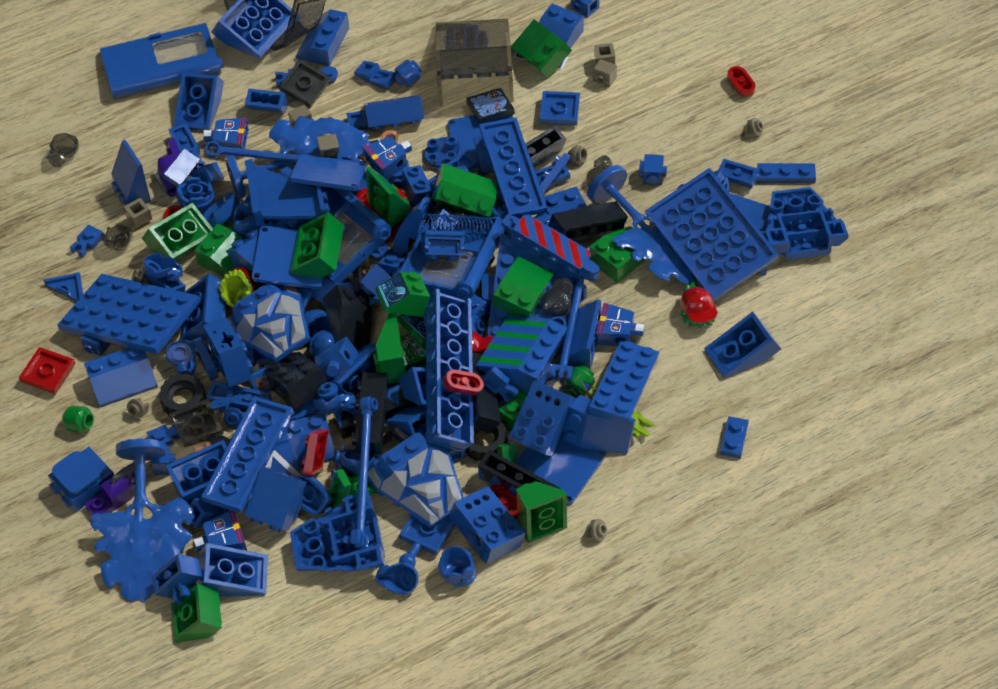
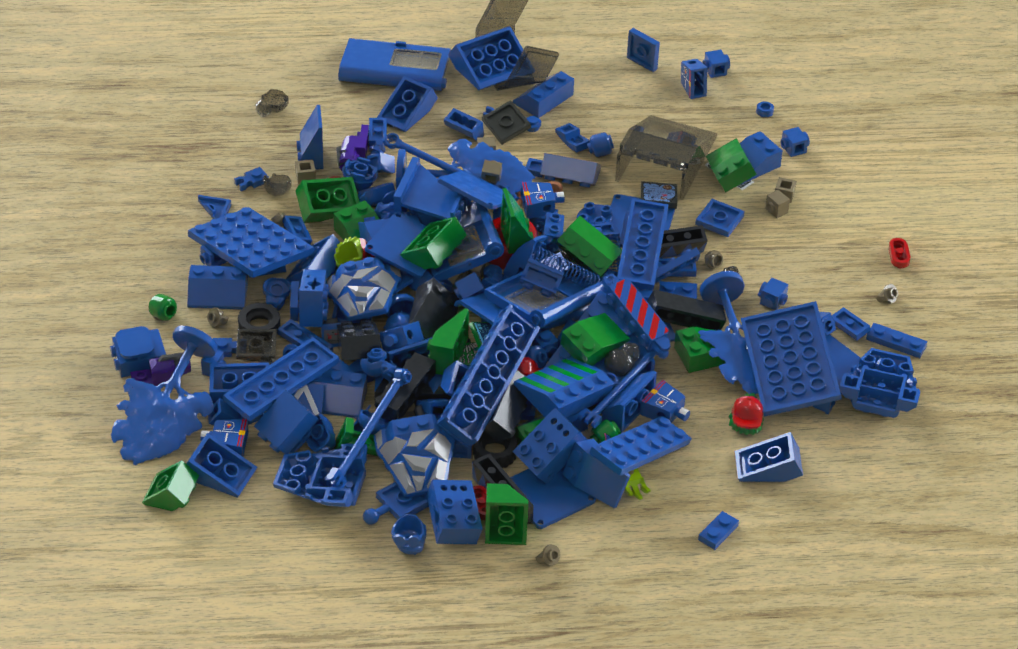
camera: 20 degrees right, 10 degrees down
(47, 370) = (160, 262): red plate -> none
(162, 267) = (296, 216): blue hair -> none
(177, 577) = (169, 450): blue brick -> none
(181, 168) = (360, 148): tile -> none
(223, 404) = (289, 337): blue piece -> none
(229, 133) = (420, 137): blue torso -> none
(316, 449) = (340, 400): red plate -> none
(398, 578) = (354, 524): blue hair -> none
(404, 294) = (481, 301): green slope -> none
(460, 382) = (490, 385): red plate -> none
(498, 382) = (525, 402): blue plate -> none
(508, 451) = (508, 464): green tile -> none

